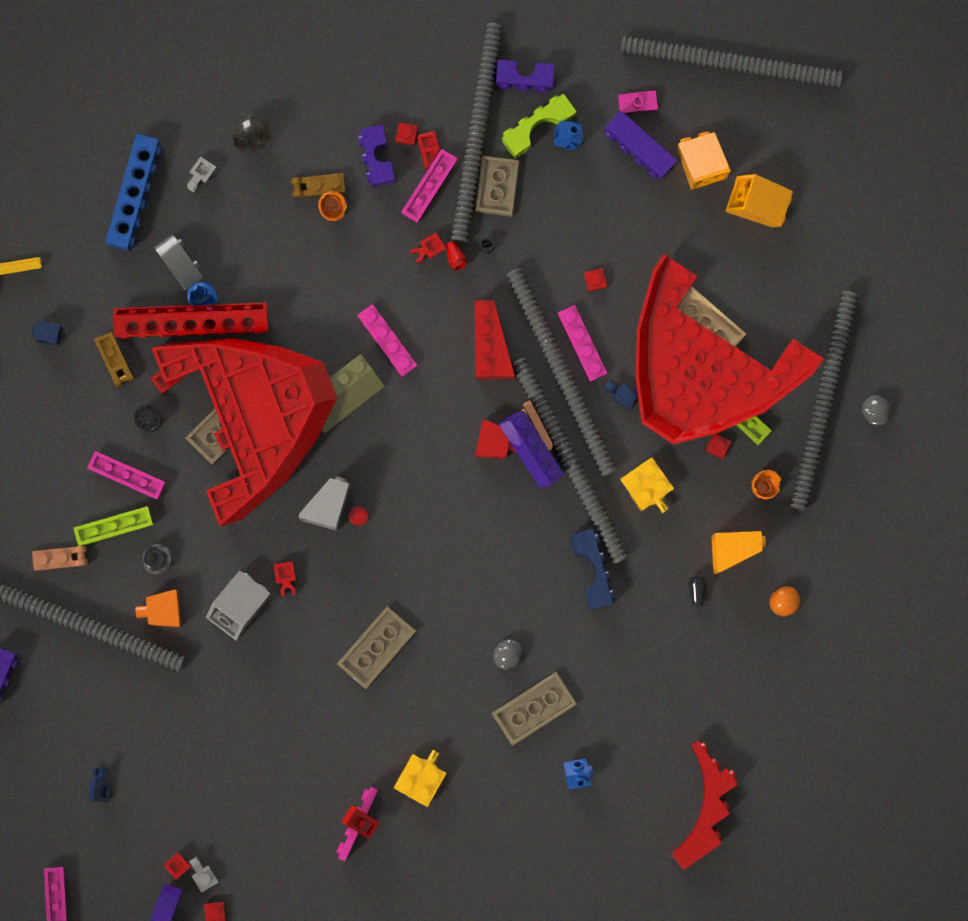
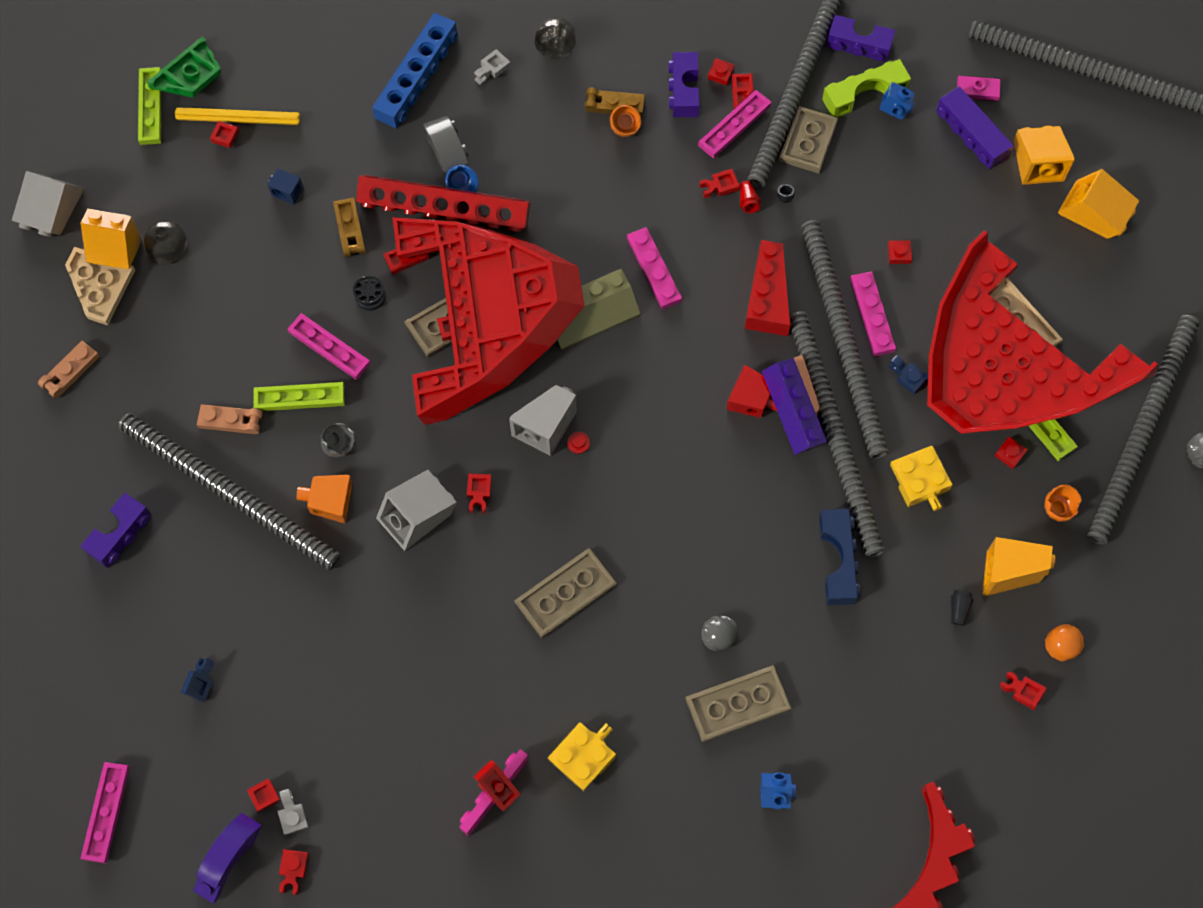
camera: 20 degrees right, 15 degrees down
(760, 649) = (1026, 692): none -> red plate

